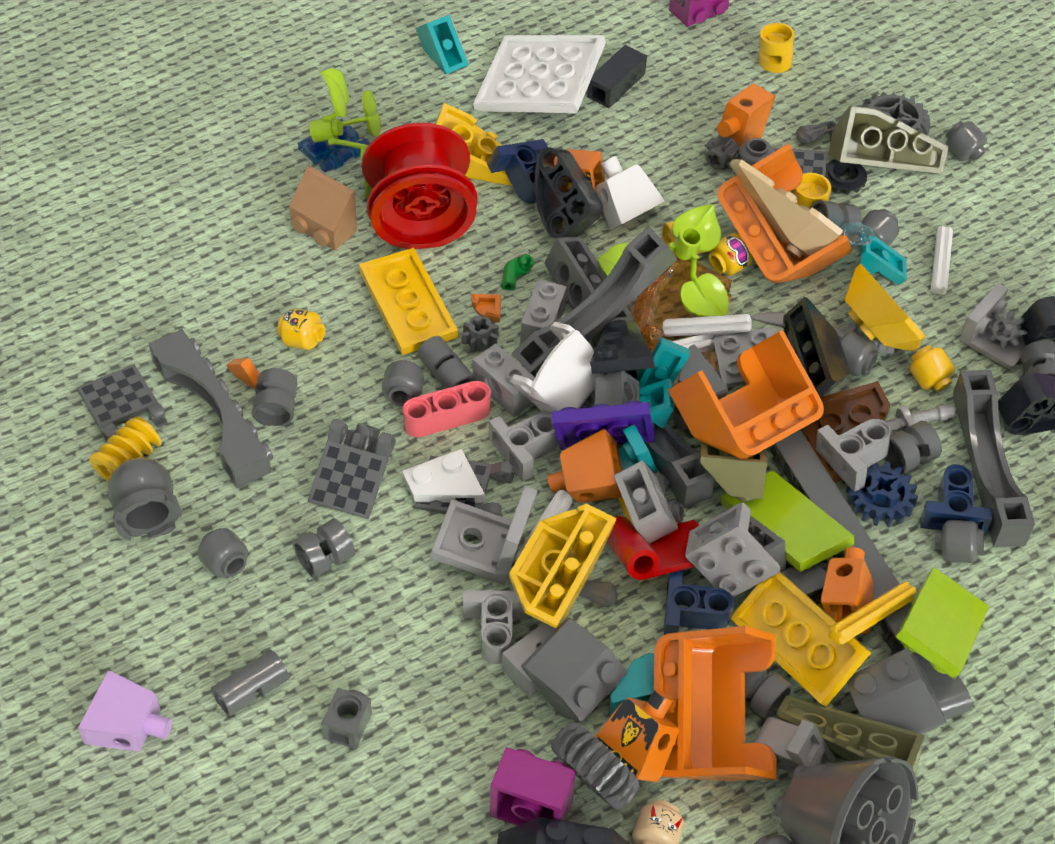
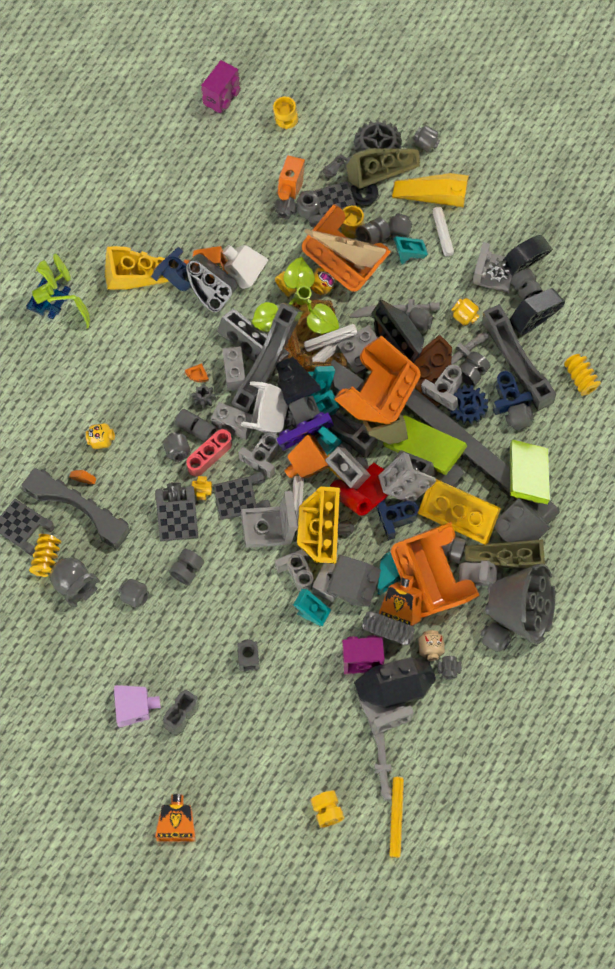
camera: 20 degrees left, 15 degrees up
(194, 755) = (183, 709): none -> dark grey brick
(241, 687) = (186, 660): dark grey pin -> none
(275, 397) = (109, 486): dark grey wheel -> none
(323, 209) = (71, 351): medium nougat slope -> none
(407, 300) = (150, 390): yellow plate -> none
(409, 450) = (202, 487): none -> yellow gear
(419, 186) = (126, 317): red wheel -> none
(442, 44) = (76, 193): teal slope -> none
(443, 479) = (229, 497): white wing -> none
(487, 686) = (311, 607): none -> teal slope
(515, 269) = (200, 343): green arm -> none
(540, 73) = (149, 193): white tile -> none
(617, 76) = (197, 174): black brick -> none
(847, 585) = (475, 475): orange torso -> none
(863, 233) = (391, 242): clear light blue pin -> none
(872, 613) = (493, 485): yellow axle -> none
(879, 314) = (423, 290): yellow wedge -> none
(958, 208) = (437, 189): none -> yellow wedge

